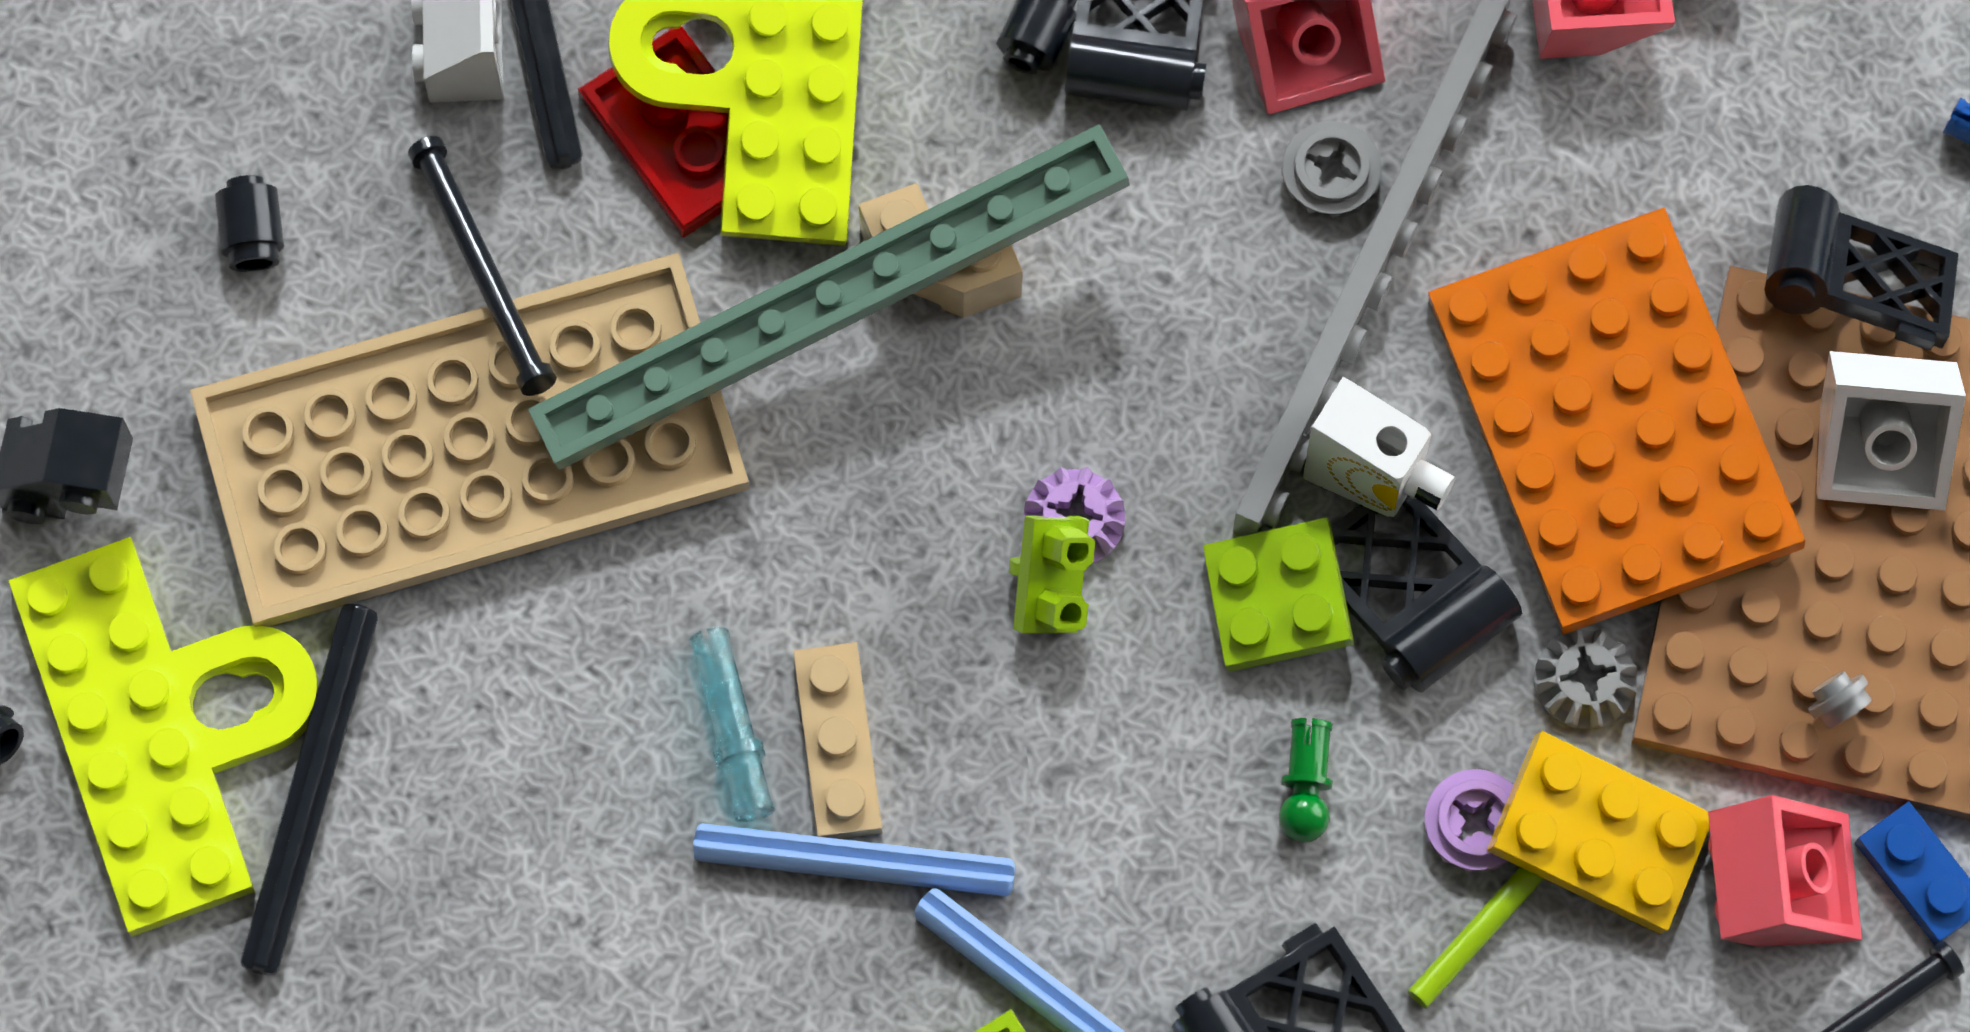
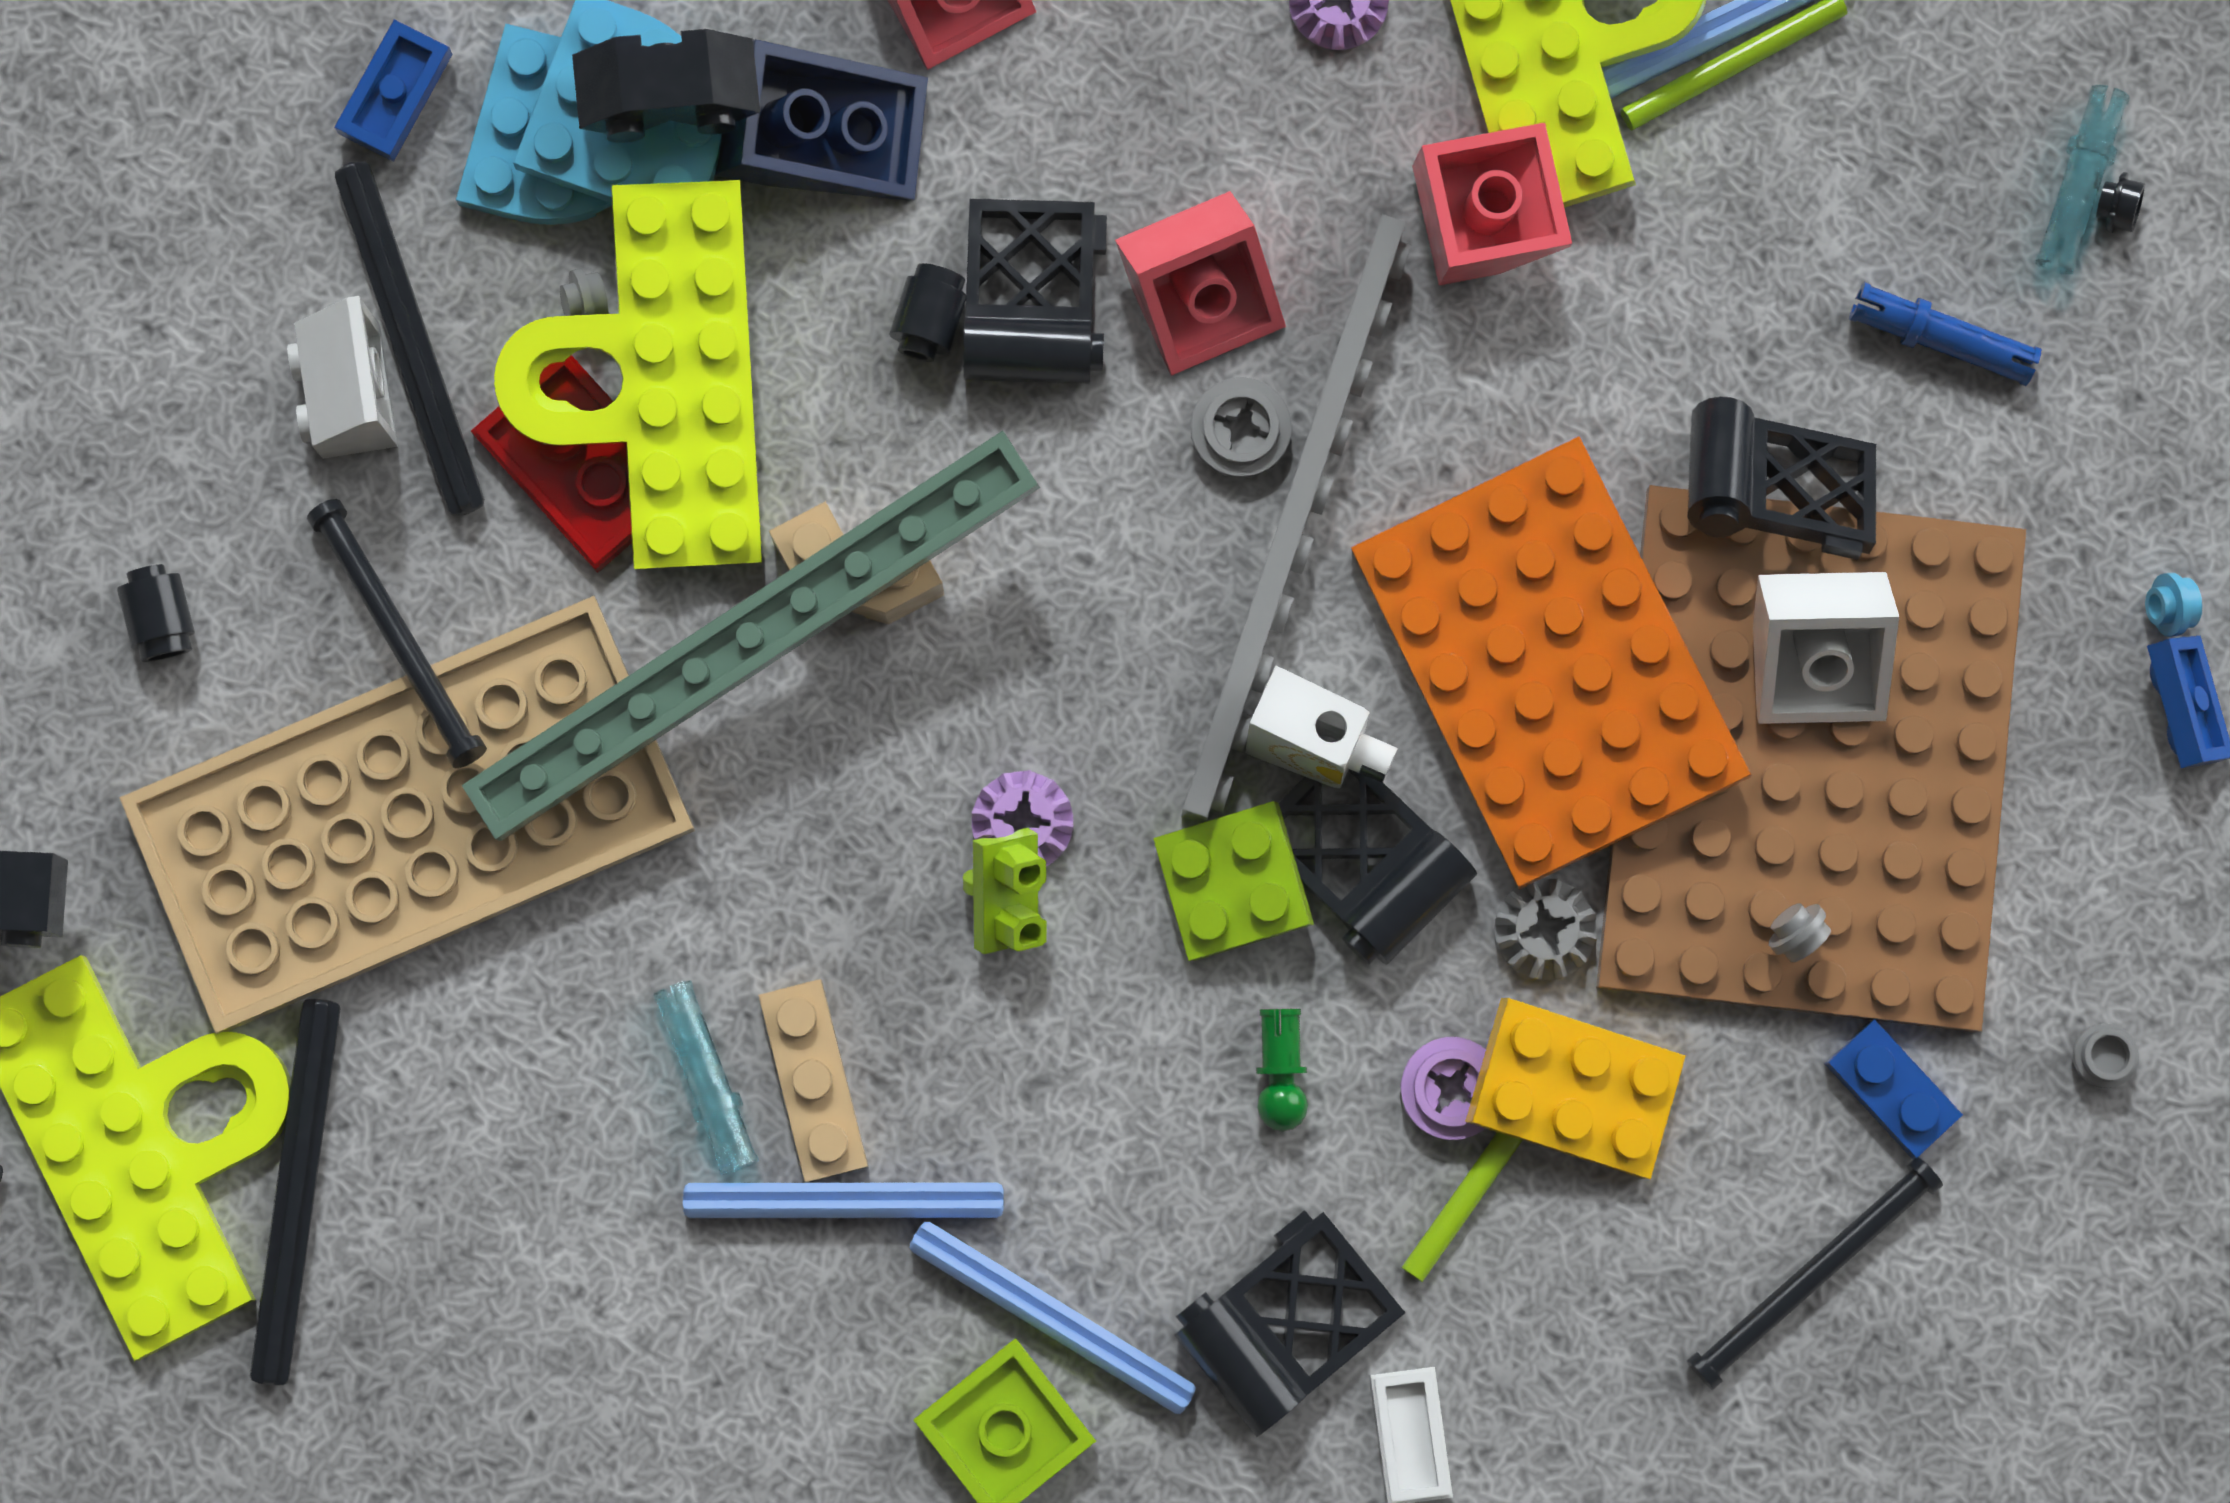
camera: 10 degrees left, 10 degrees up
(1783, 873) = (1759, 1109): coral slope -> none

